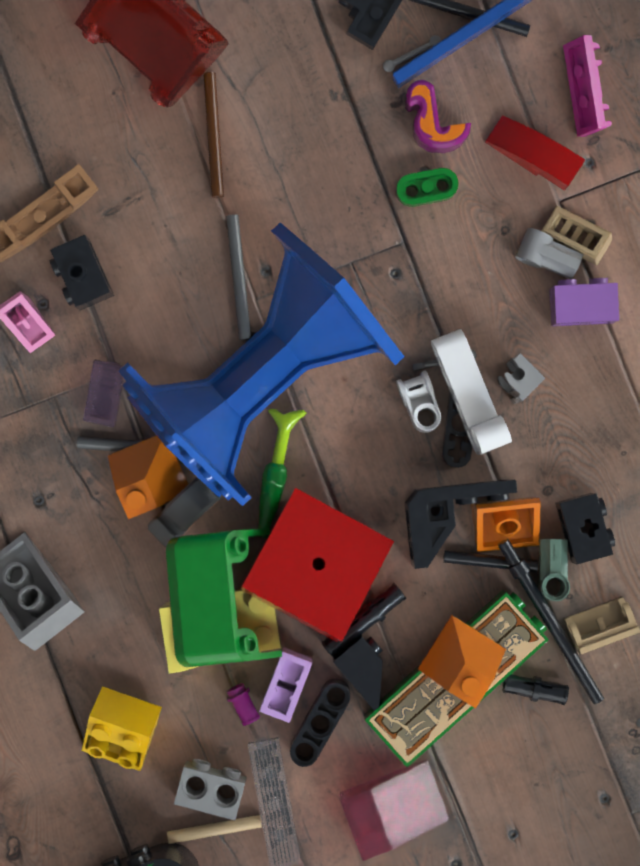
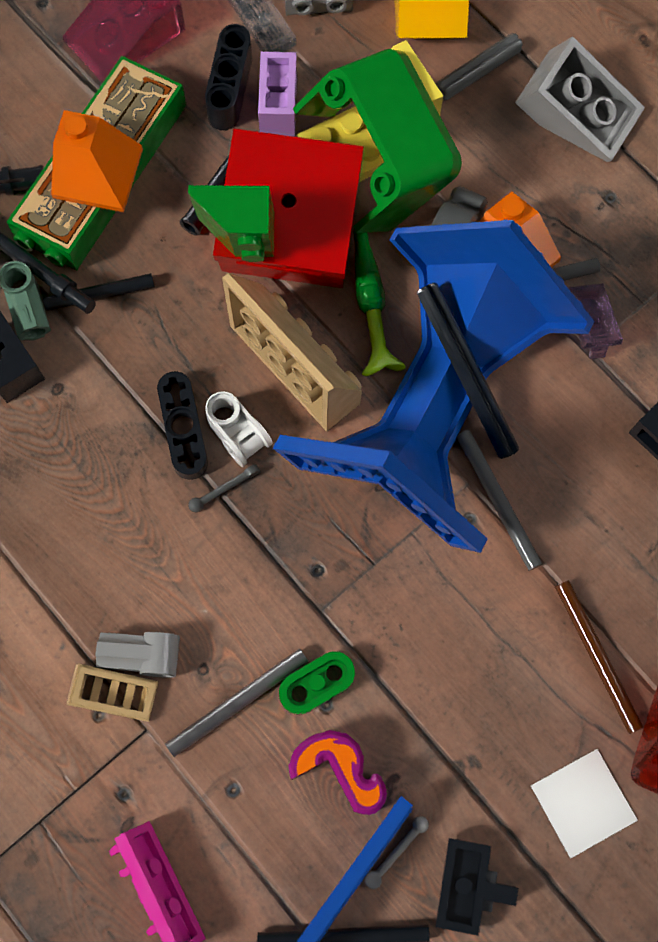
camera: 160 degrees right, 15 degrees down
(99, 661) = (480, 66): none -> dark grey axle
(226, 379) = (468, 370): none -> black axle
(243, 704) = (312, 67): magenta pin -> none
(267, 39) = (583, 803): none -> white sticker
(355, 443) = (290, 351): none -> tan slope
(363, 668) = (203, 137): black slope -> none
(369, 547) = (237, 217): none -> green slope
(430, 532) = (182, 320): black bracket -> none
(469, 393) = (178, 446): white beam -> none
(487, 196) = (236, 703): none -> flat silver bar
(504, 520) = (95, 337): orange slope -> none
(522, 380) = (121, 485): light grey hinge -> none
(535, 152) = (196, 776): red slope -> none
(584, 303) = (76, 608): medium lavender brick -> none

